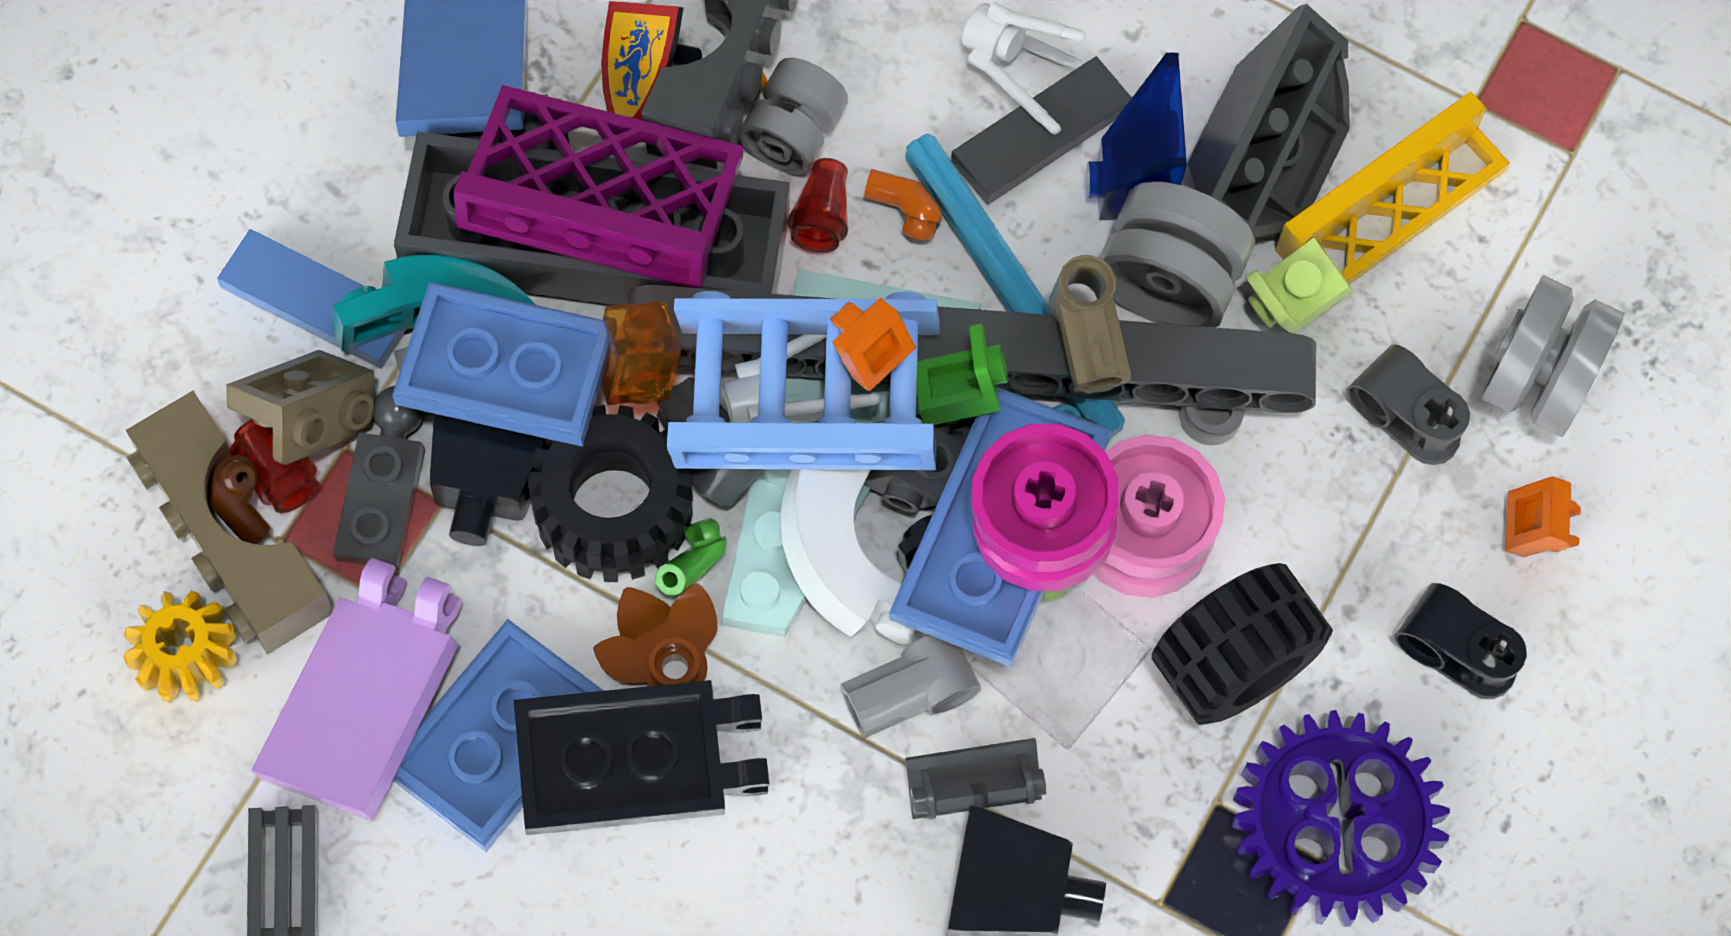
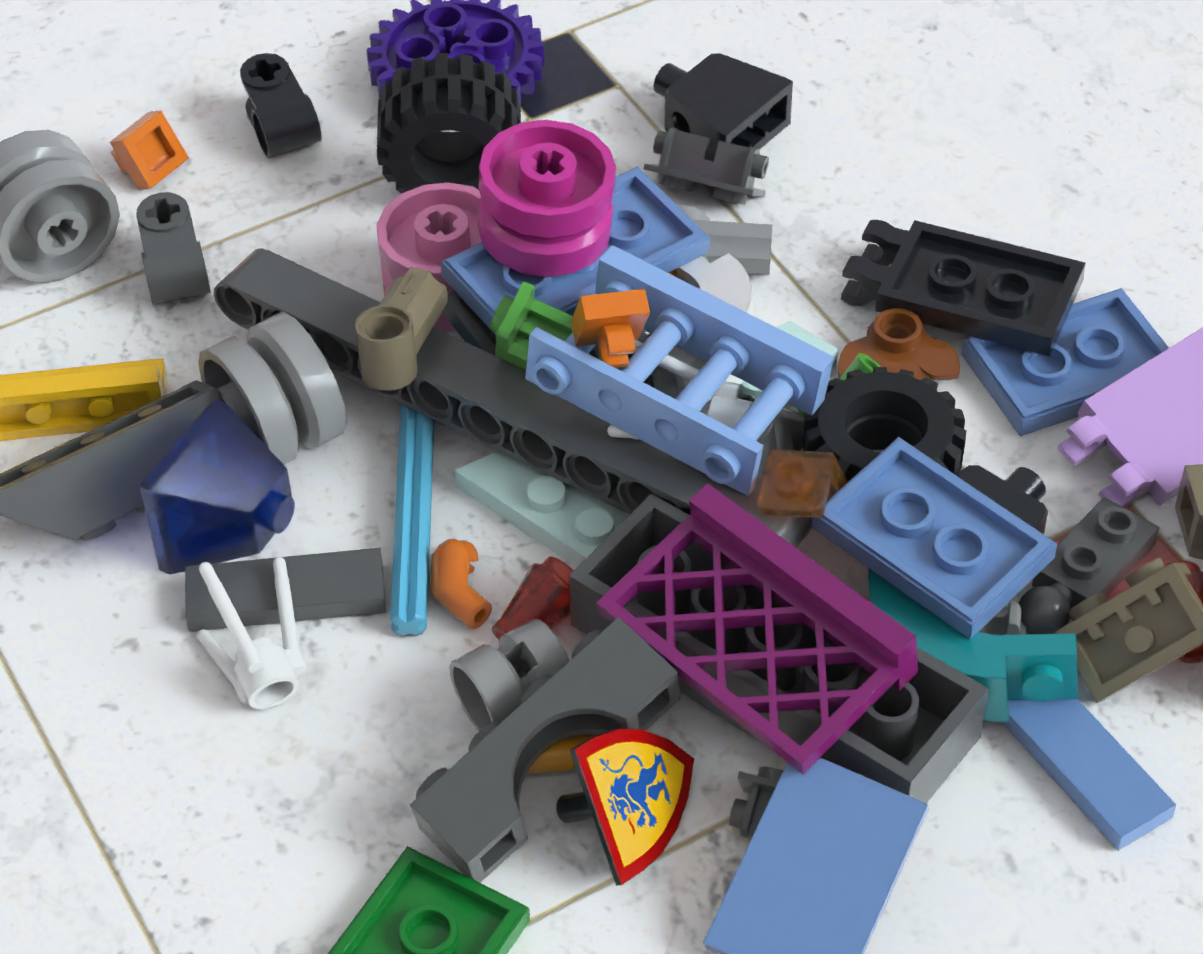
camera: 145 degrees left, 20 degrees down
(1298, 288) = (176, 354): yellowish green bracket -> none

